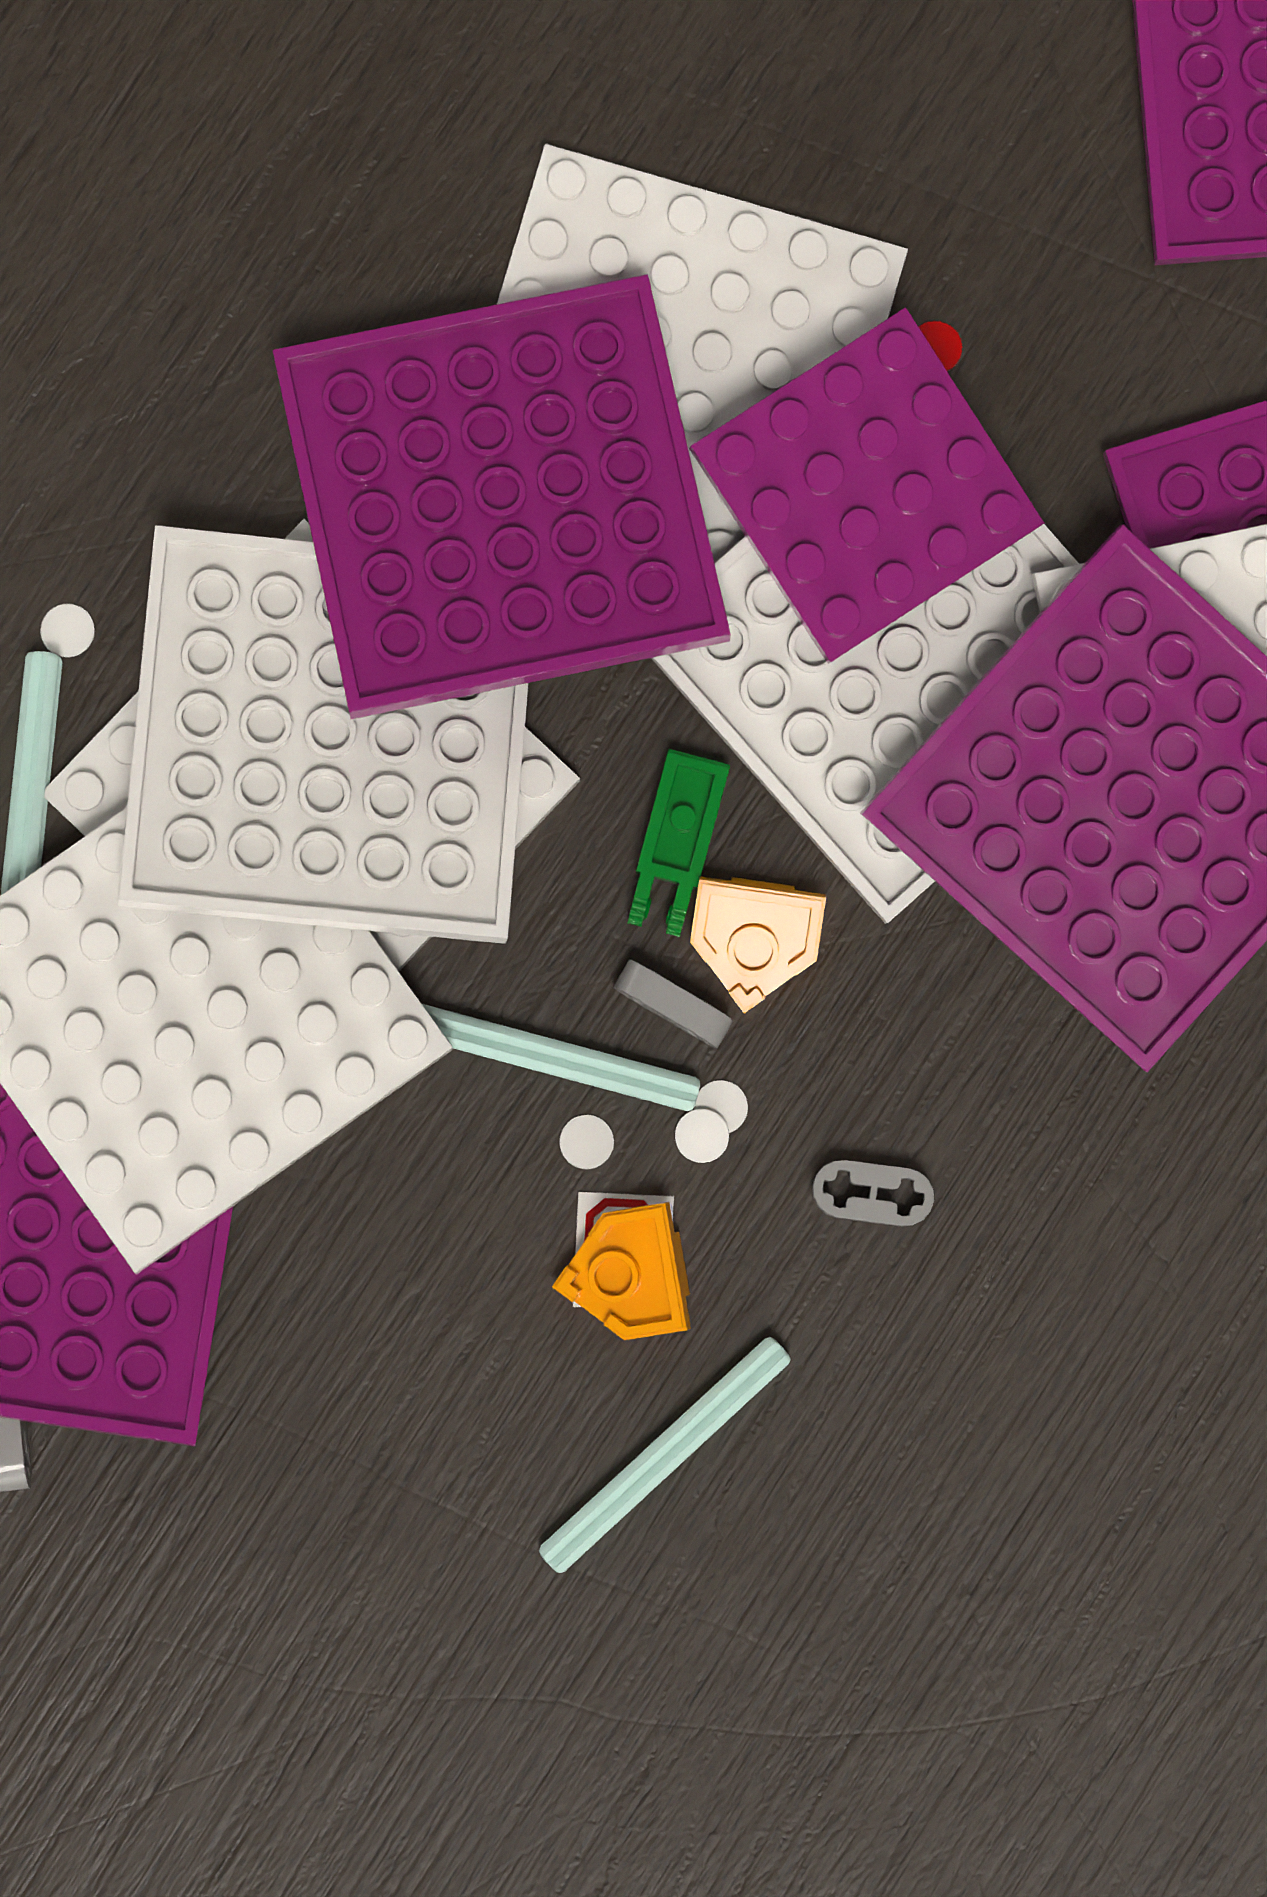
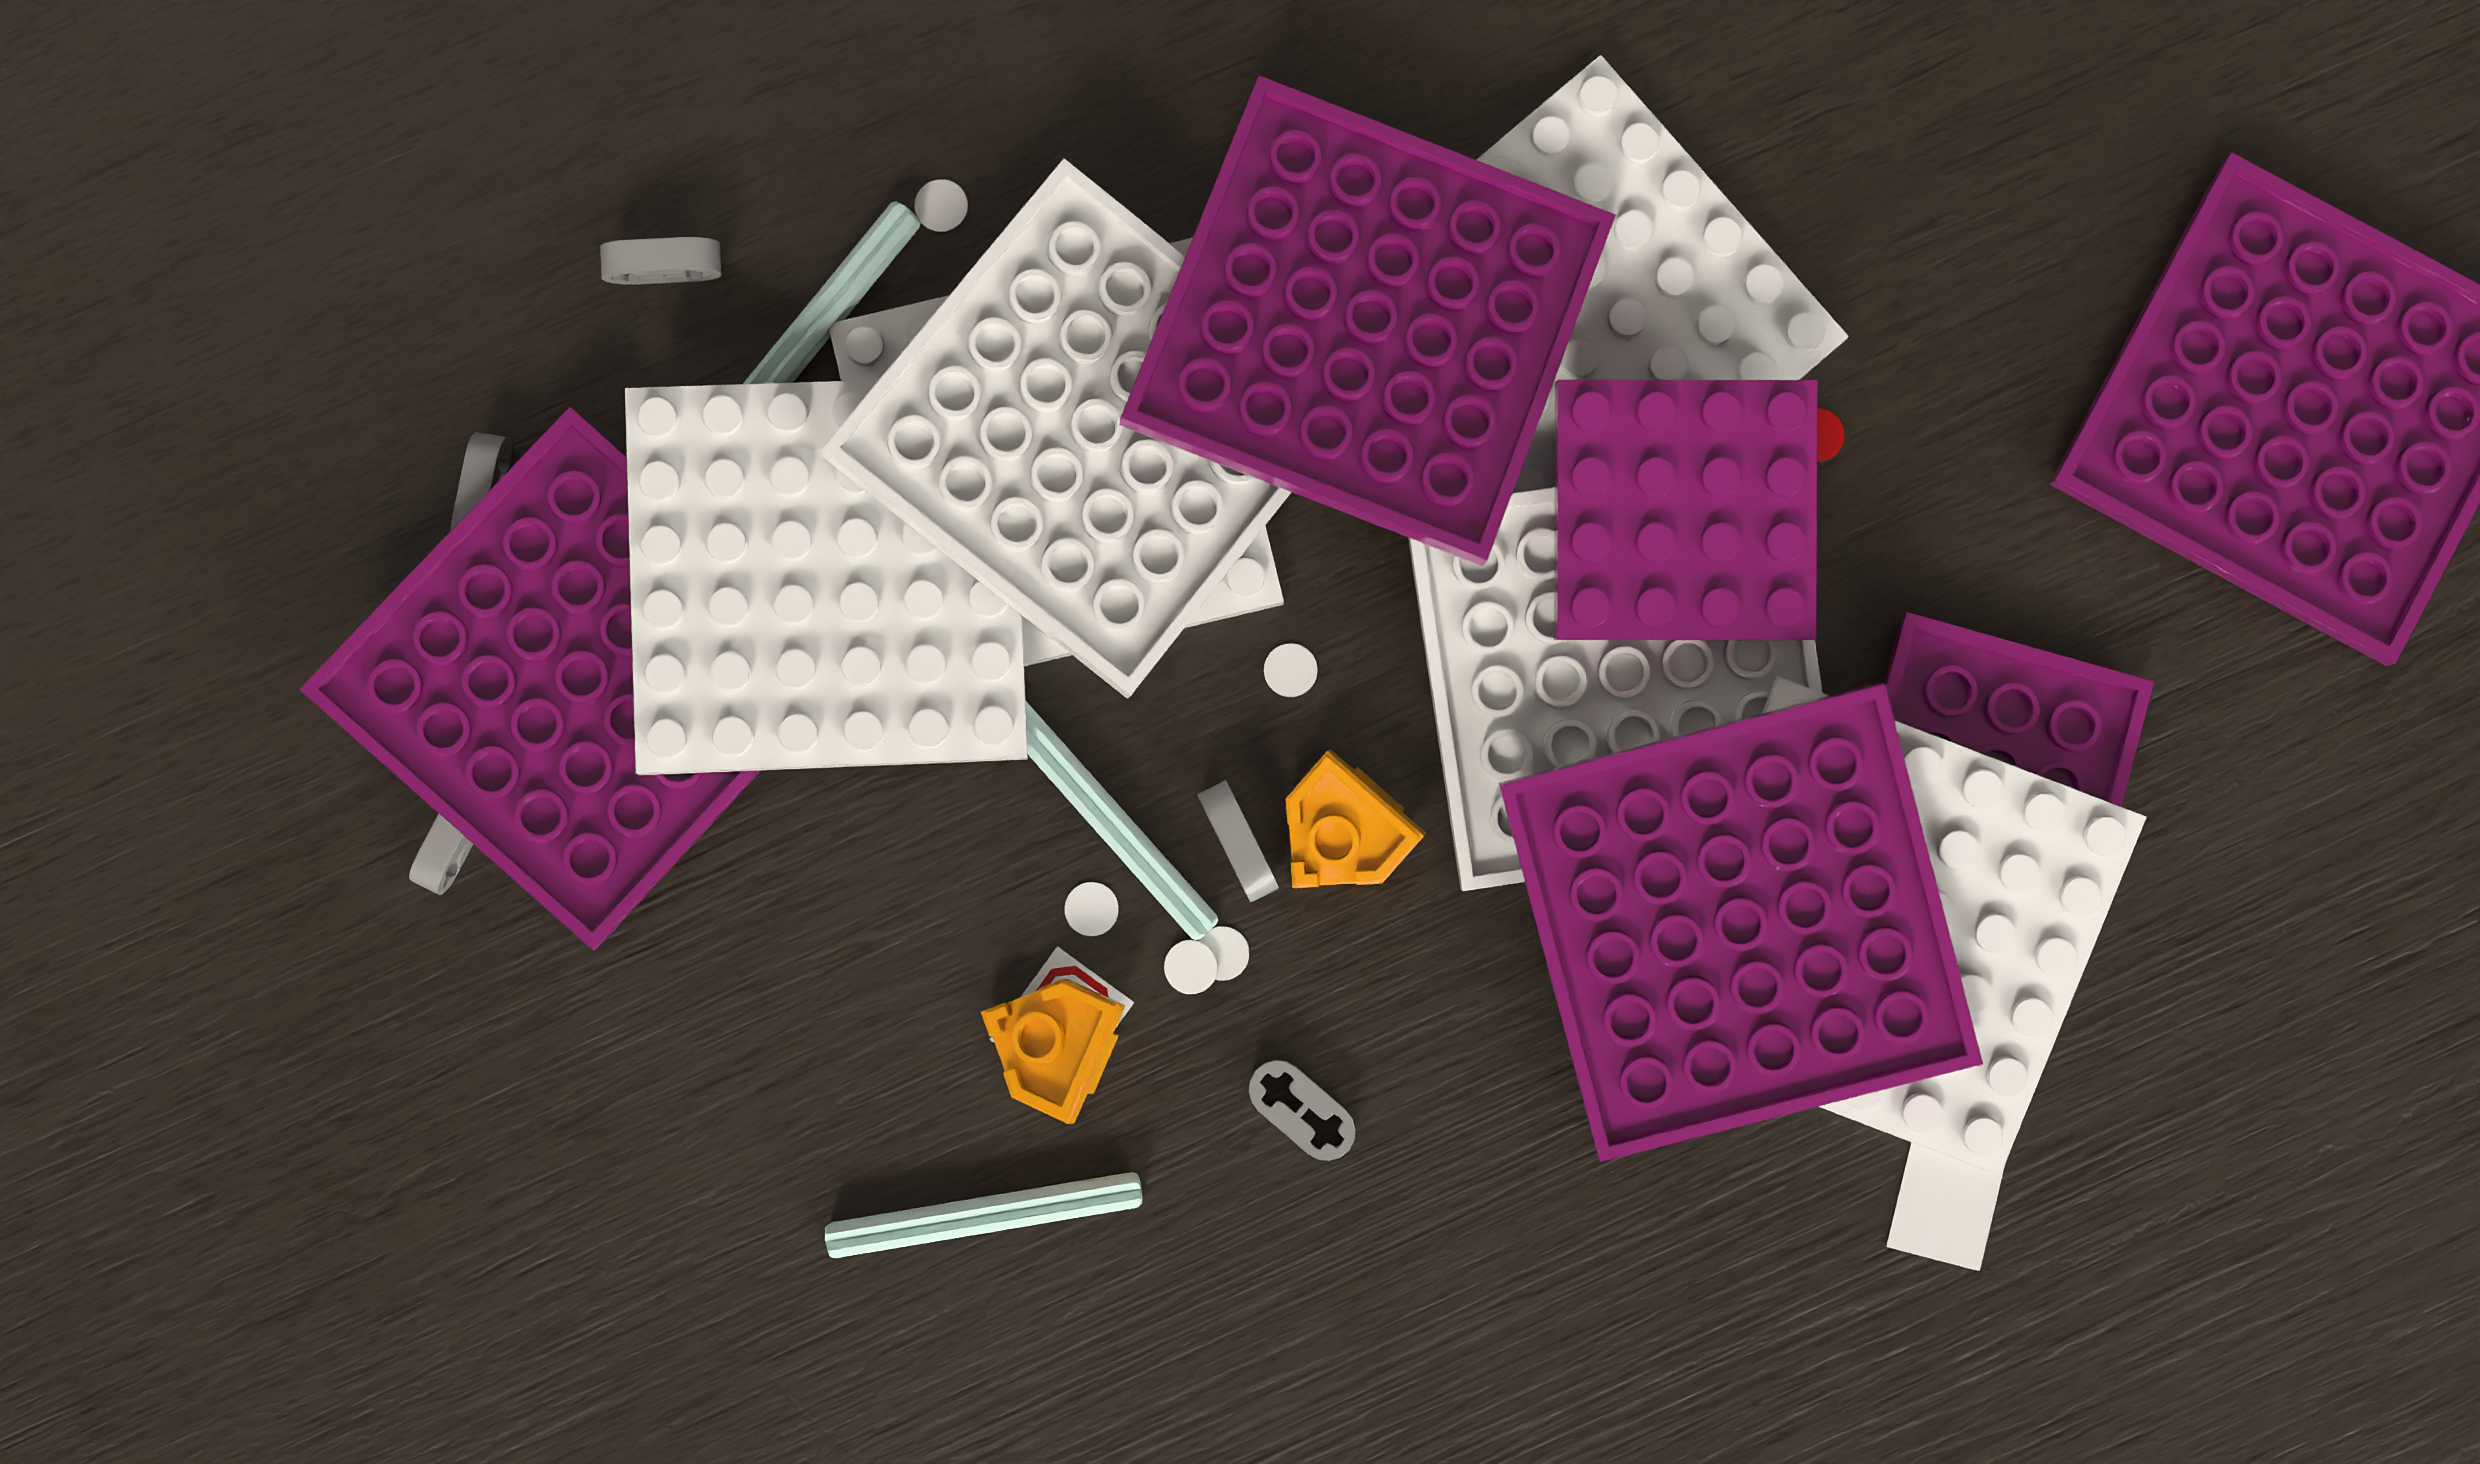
camera: 35 degrees right, 0 degrees up
(621, 832) = (1290, 670): none -> white sticker
(679, 833) = (1336, 701): green hinge -> none

